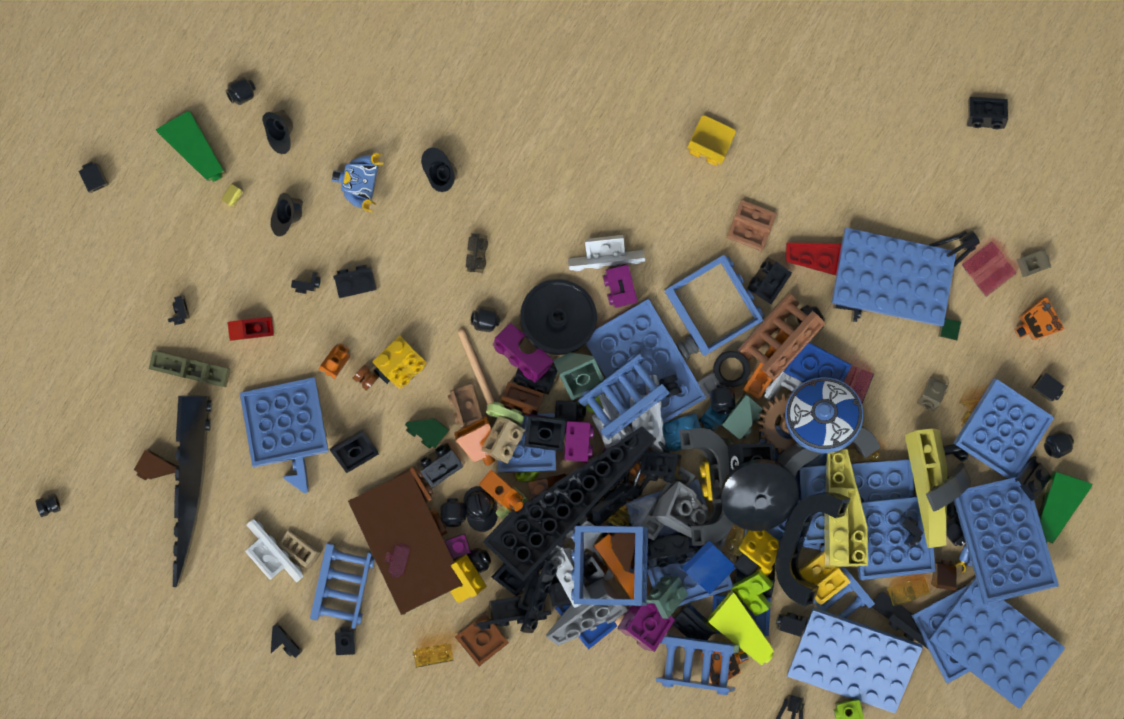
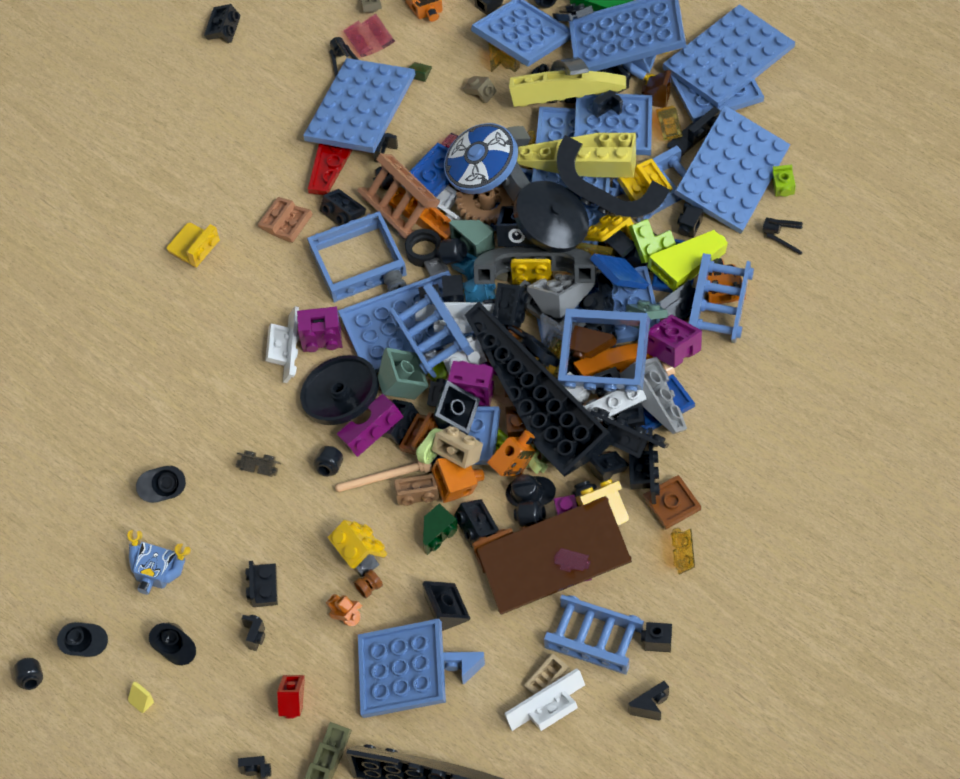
camera: 80 degrees left, 30 degrees down
(191, 143) = (74, 731): green slope -> none
(676, 408) = (452, 288): none -> black brick

